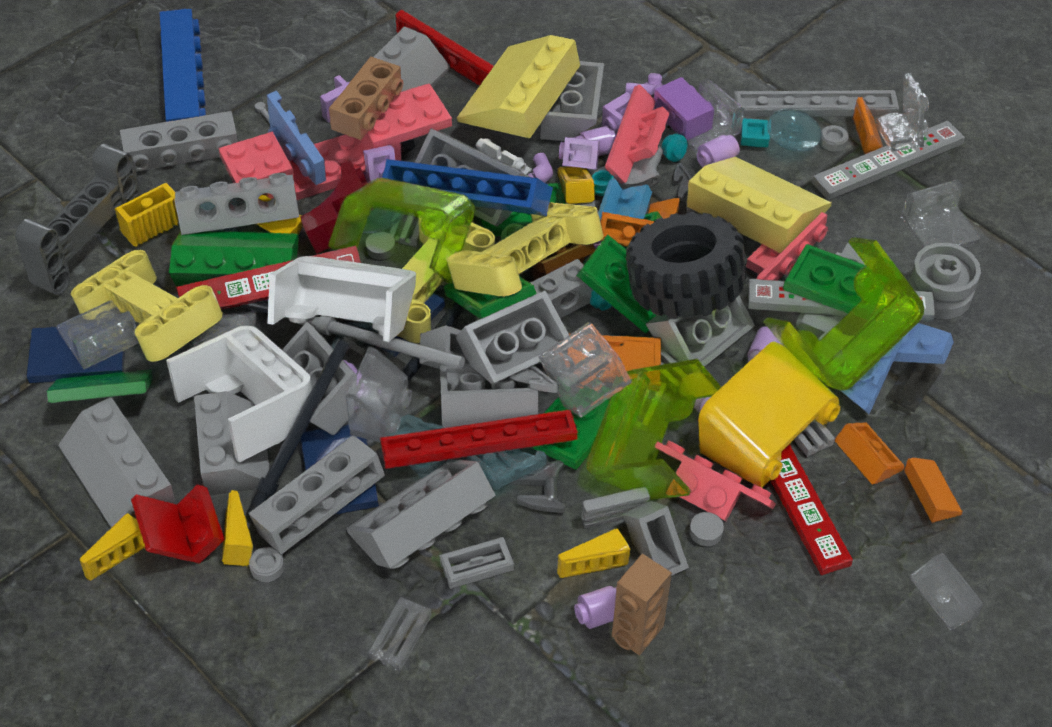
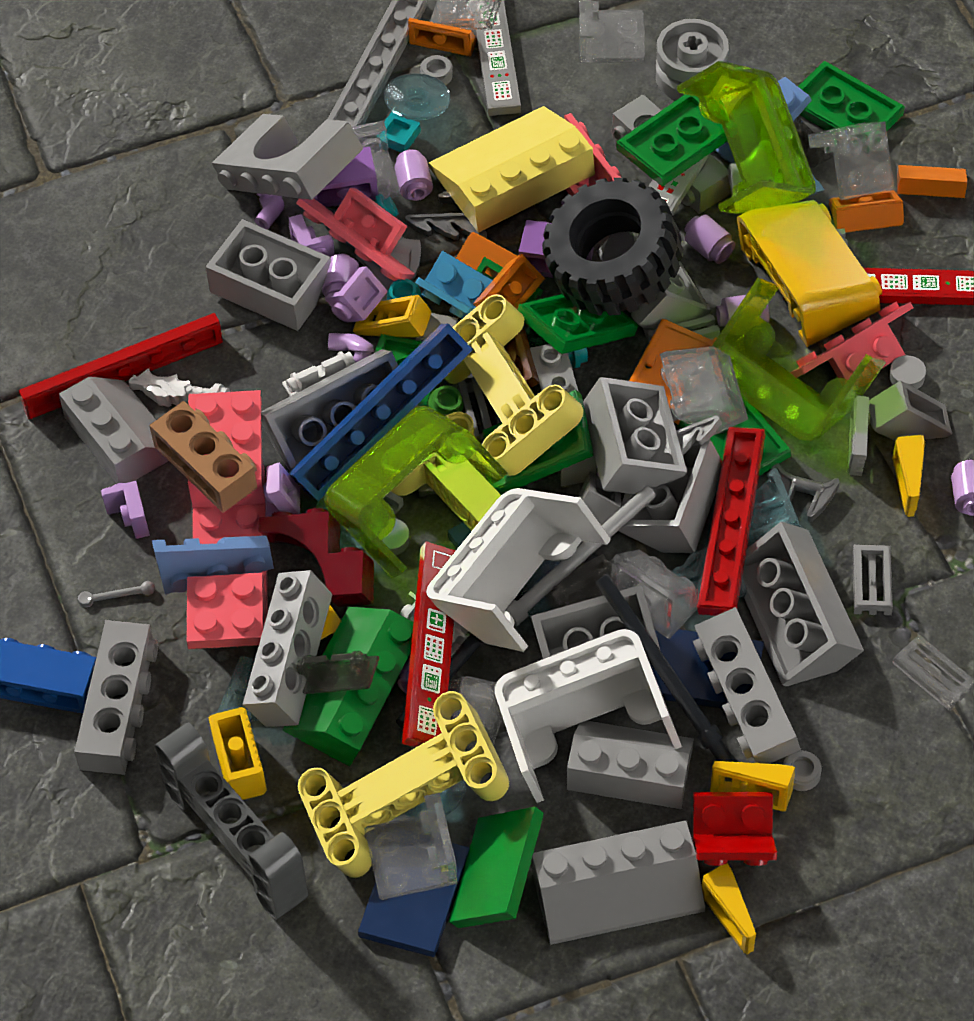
camera: 65 degrees left, 5 degrees up
(221, 235) = (340, 673): none -> clear smoke hinge
(451, 91) = (169, 389): none -> white piece
(523, 86) = (241, 308): light yellow slope -> none
(674, 68) = (263, 165): none -> light grey arch
(906, 418) = (859, 157): none -> clear bracket
(975, 405) = (845, 101): none -> green tile

